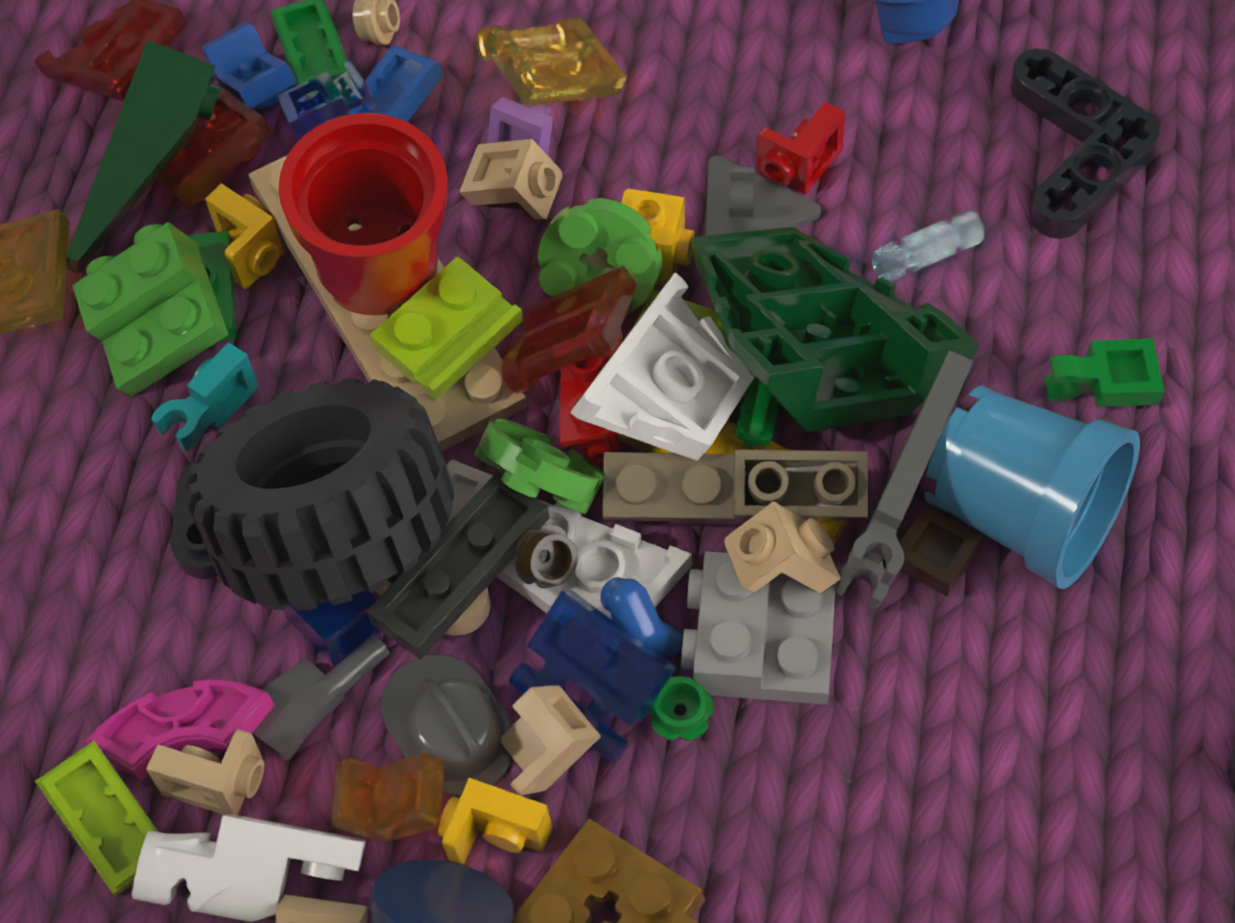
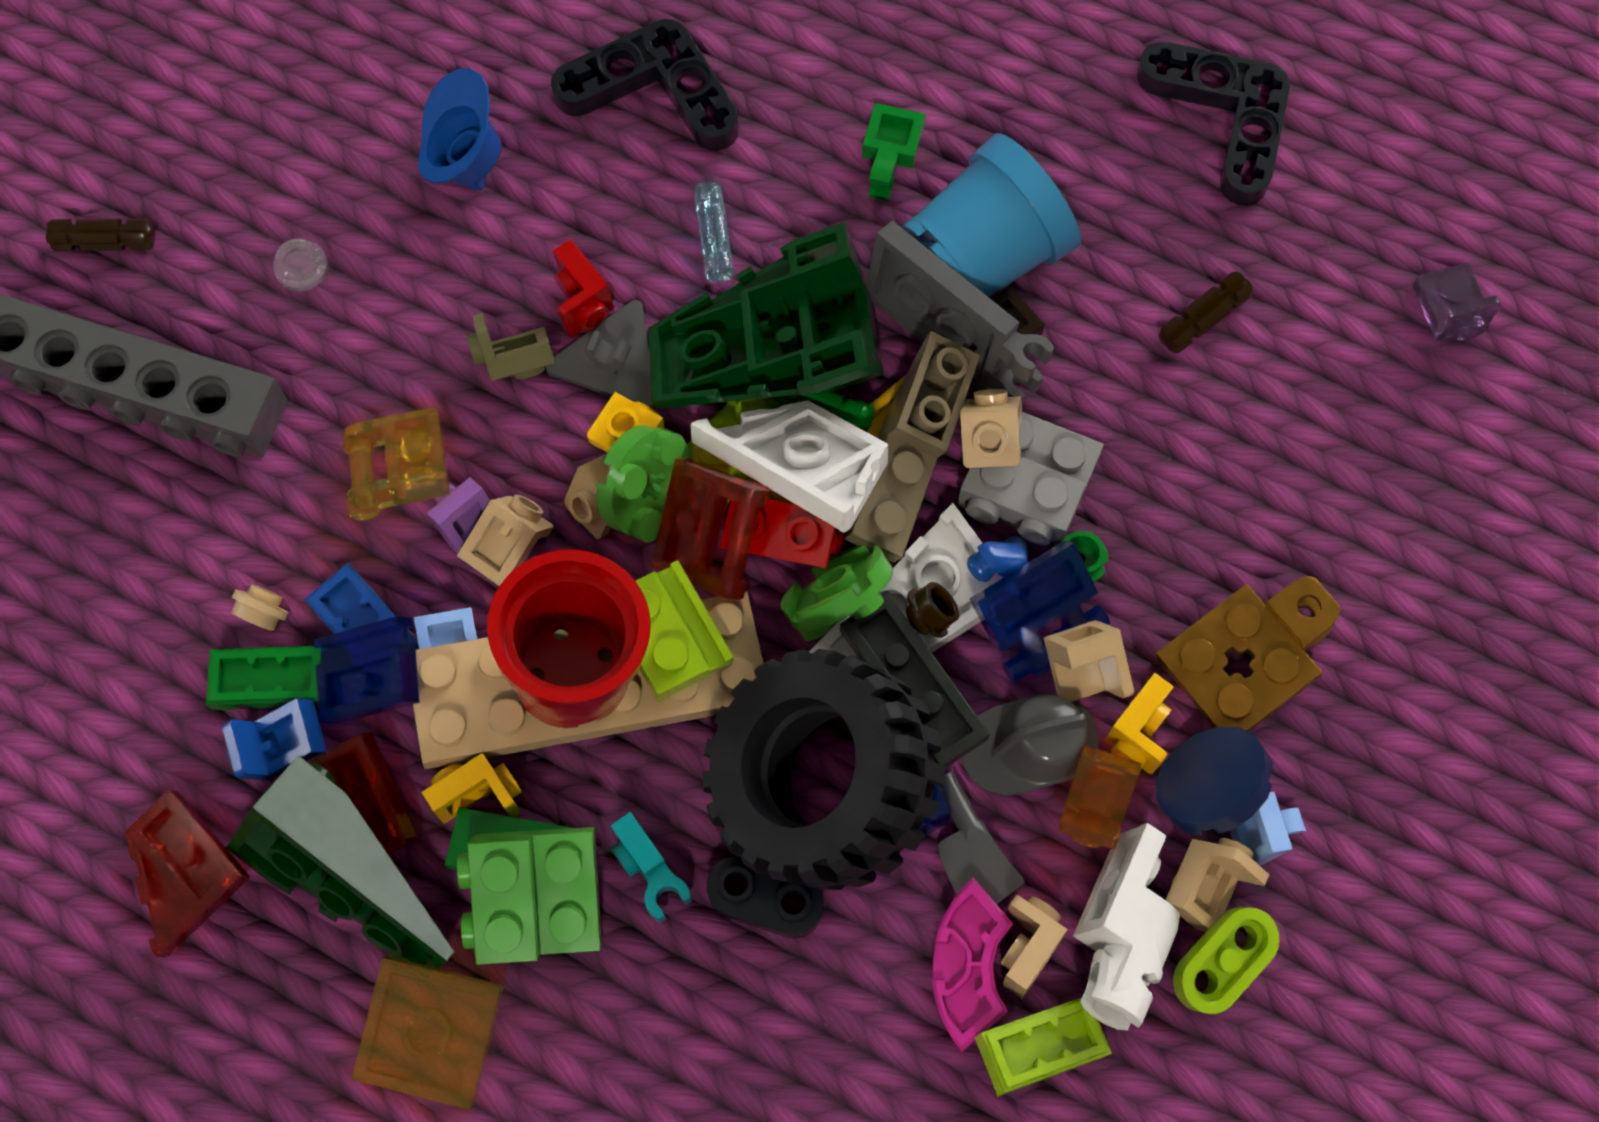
camera: 75 degrees left, 10 degrees up
(700, 110) = (516, 355): none -> olive bracket
(1053, 765) = (1205, 312): none -> dark brown axle

